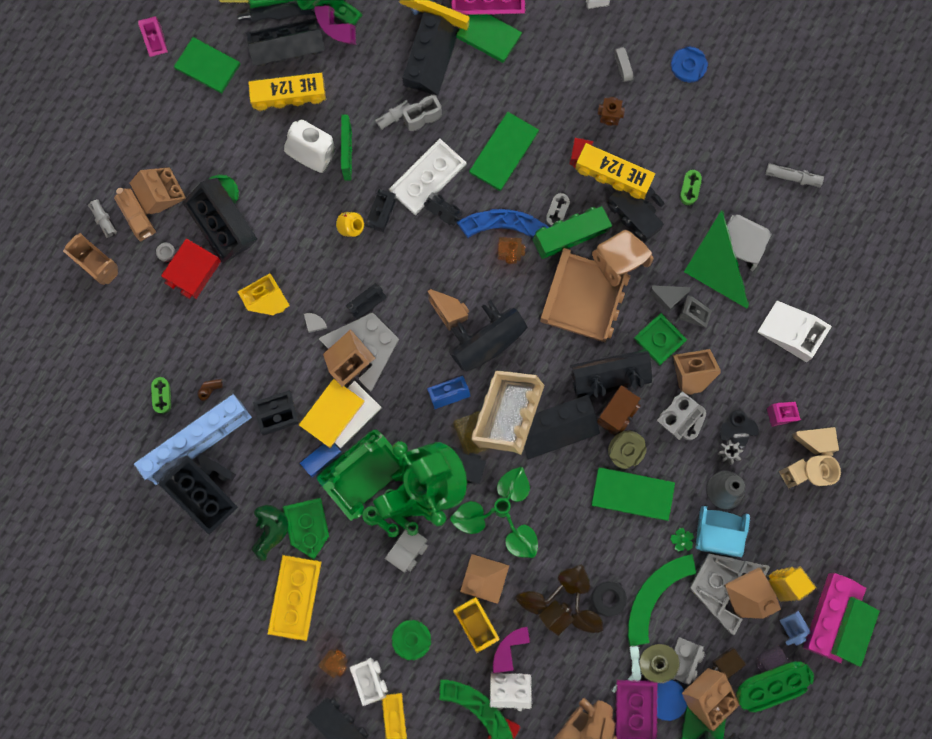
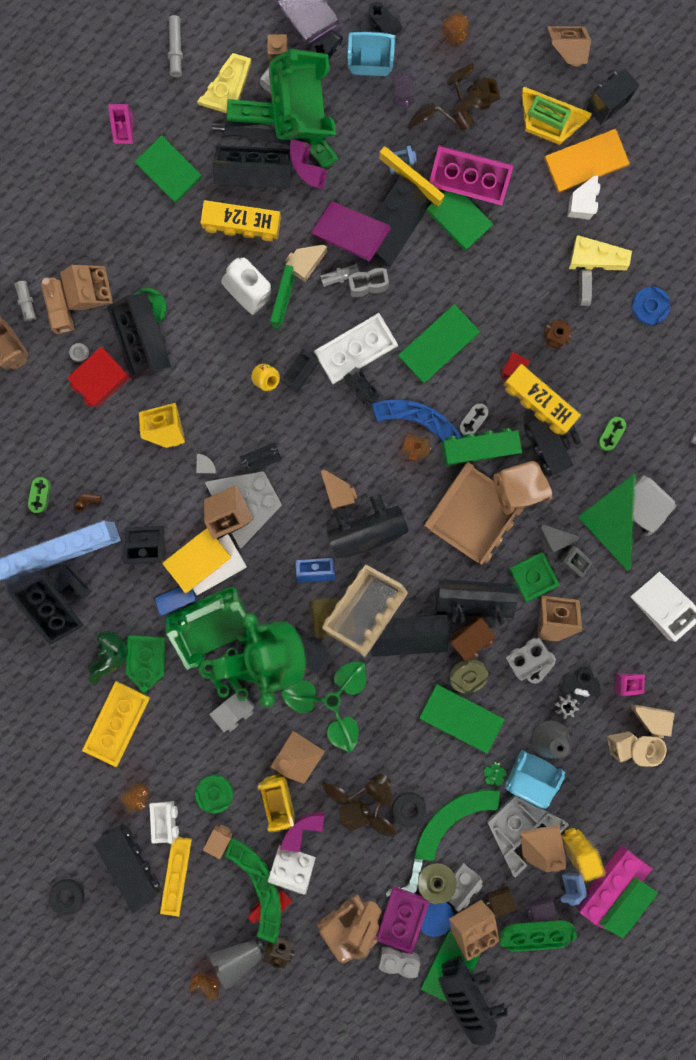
camera: 10 degrees right, 10 degrees up
(359, 109) = (306, 260): none -> tan slope
(392, 71) = (351, 230): none -> magenta tile
(428, 684) = (218, 841): none -> medium nougat brick
(623, 32) = (592, 253): none -> light yellow wing

